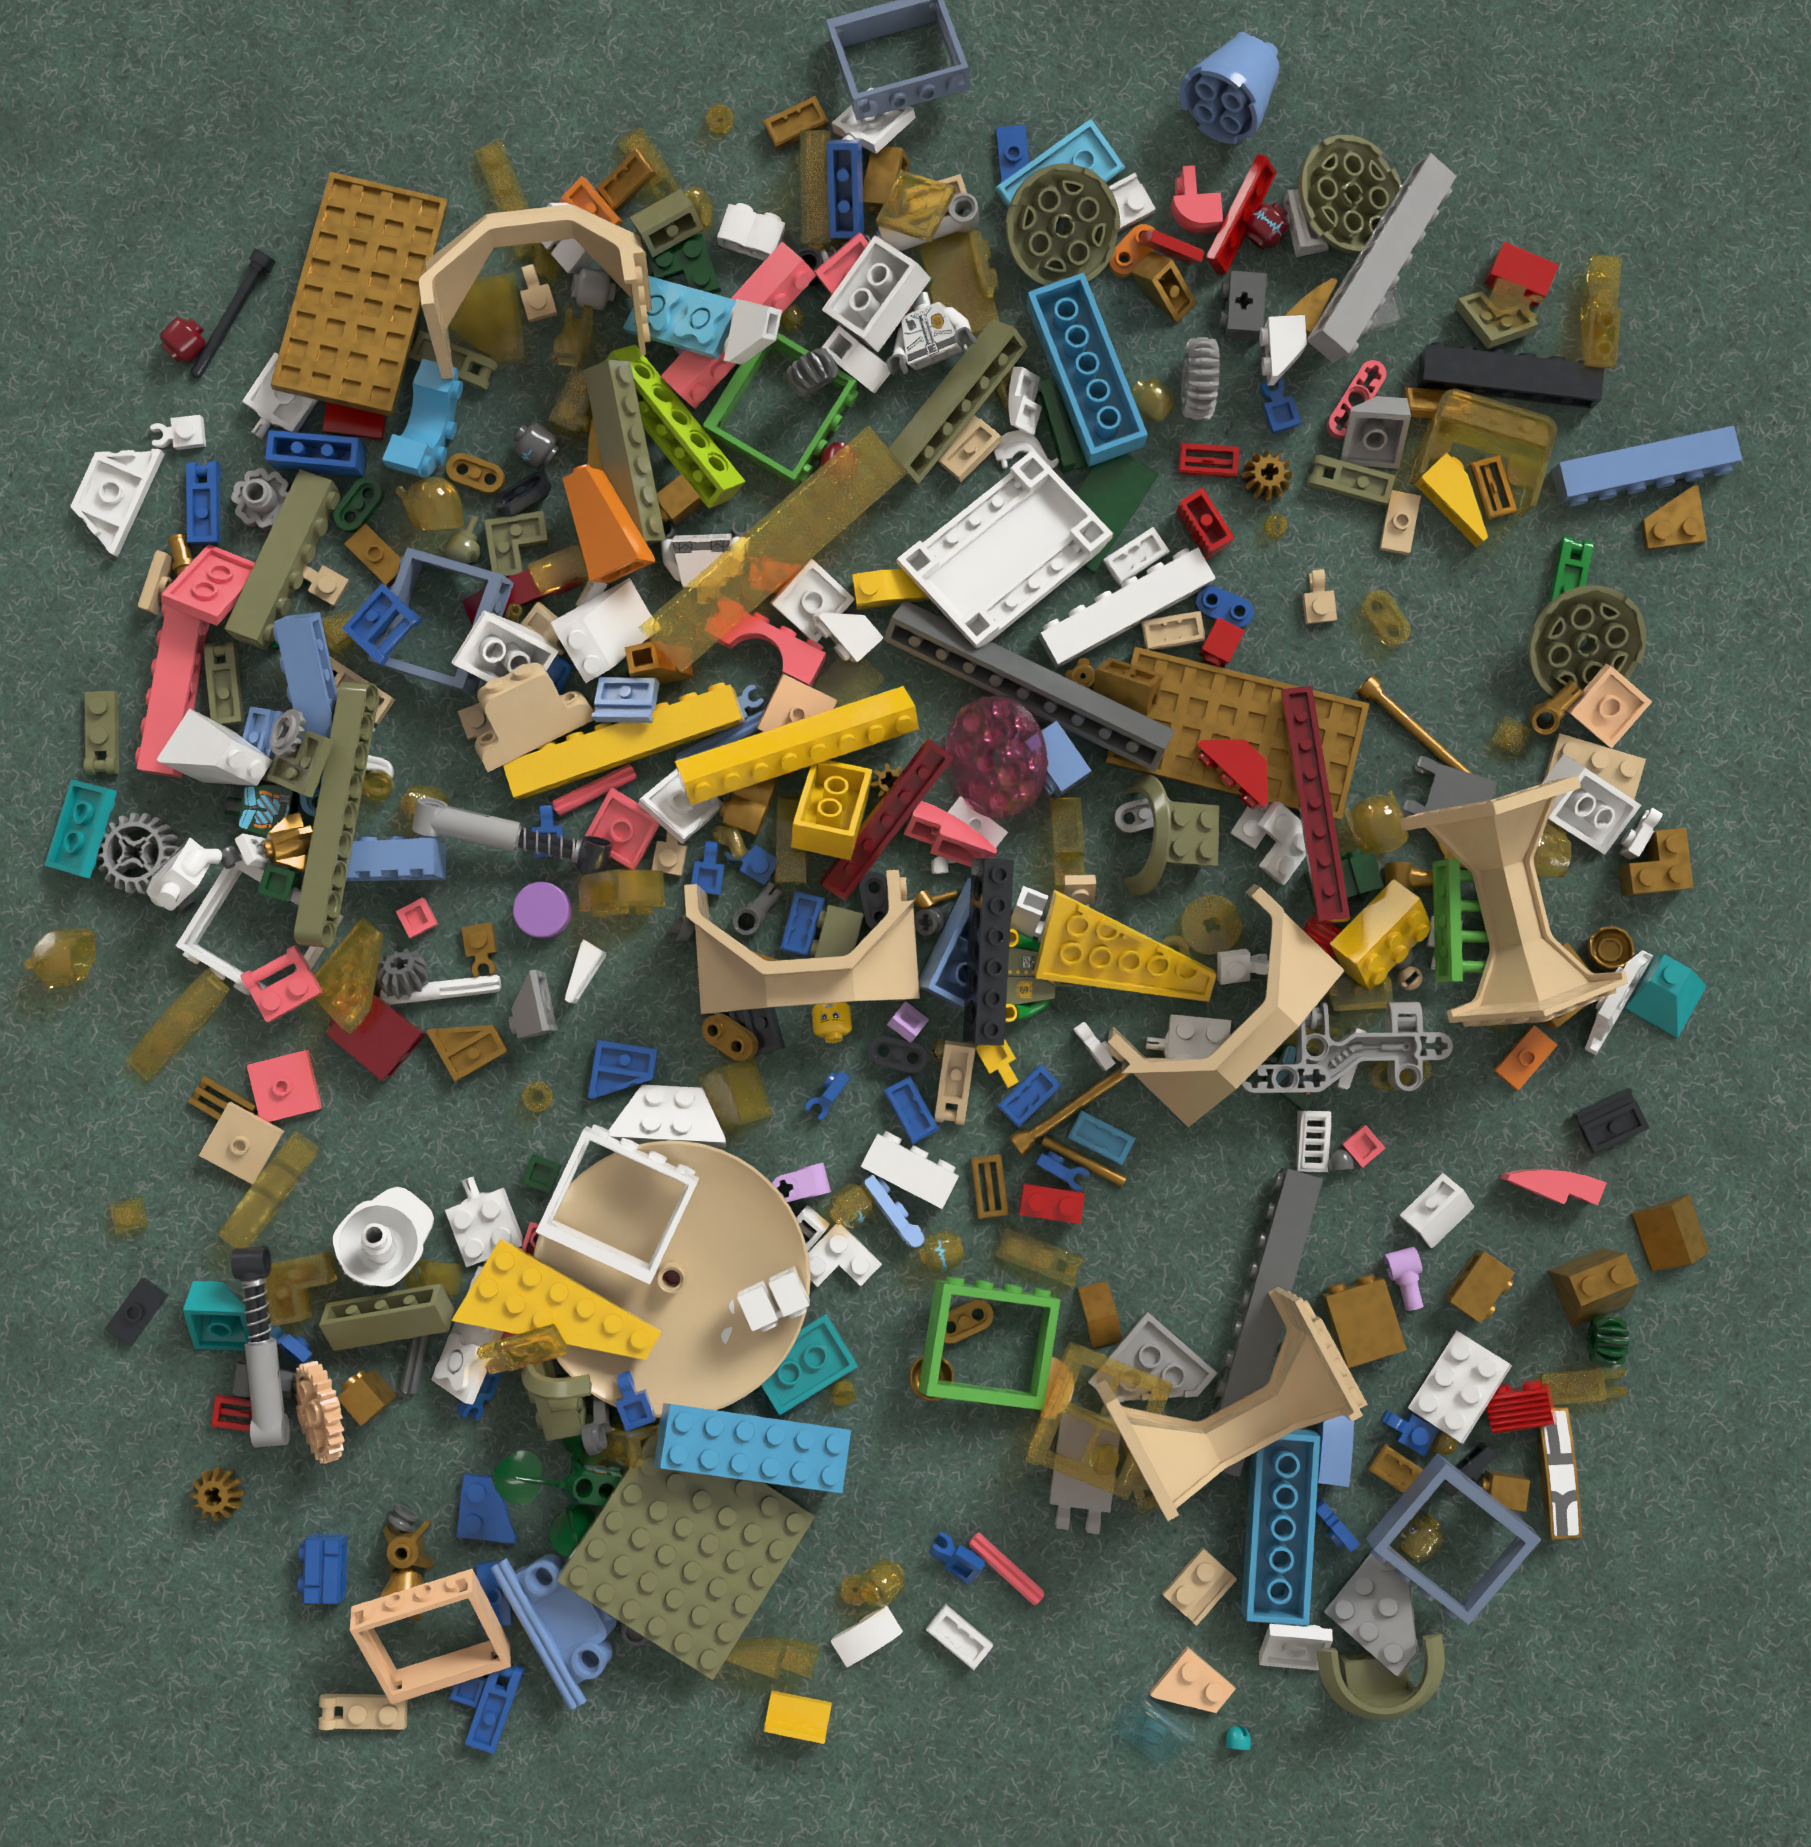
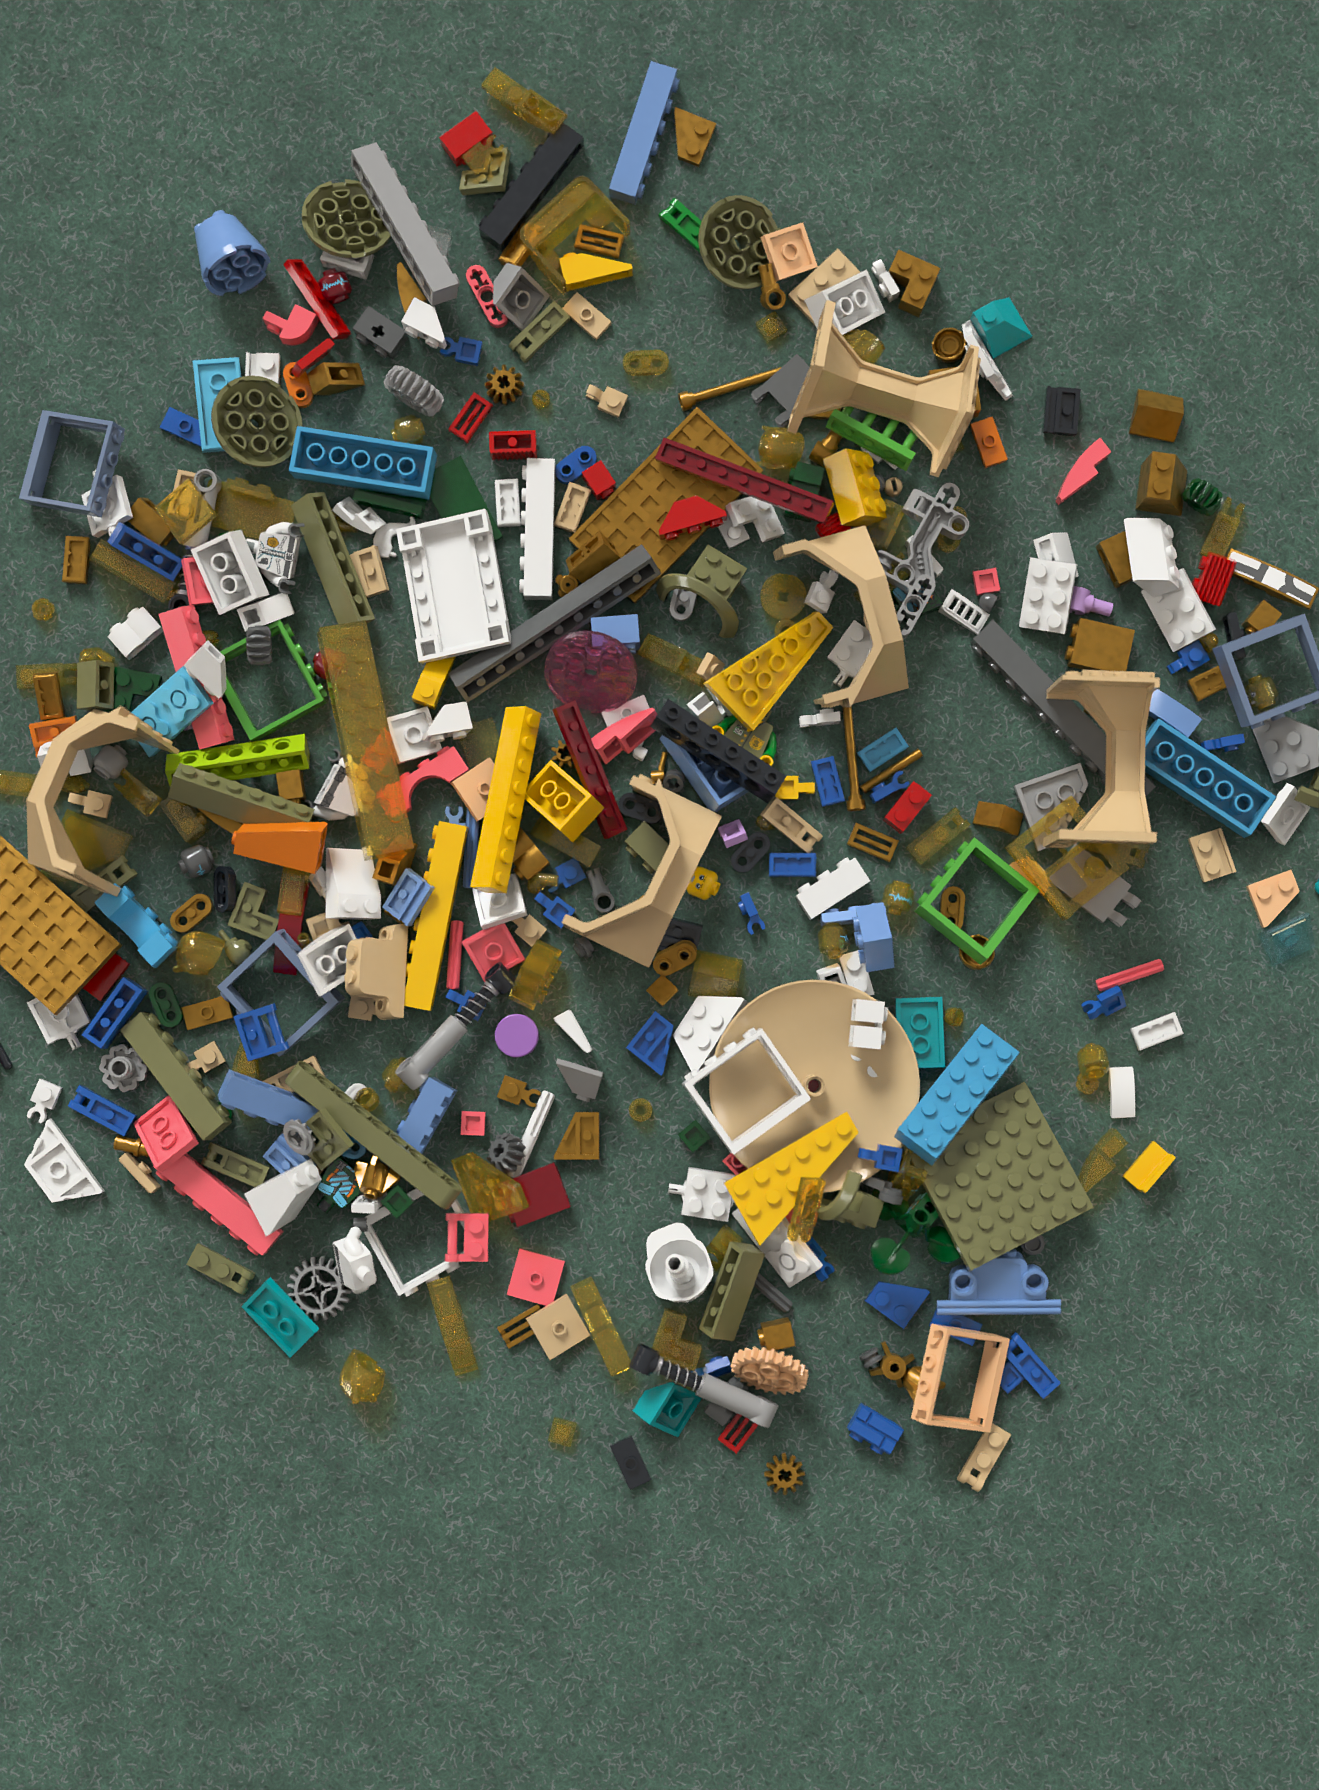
camera: 60 degrees left, 0 degrees up
(686, 1044) = (662, 990): none -> pearl gold slope
(802, 923) = (626, 866): blue plate -> none
(806, 1182) = (800, 962): lavender piece -> none
(878, 1249) = (873, 937): none -> medium blue brick
(1388, 1226) = (1048, 595): none -> white plate
(1505, 1321) = (1152, 555): none -> white slope

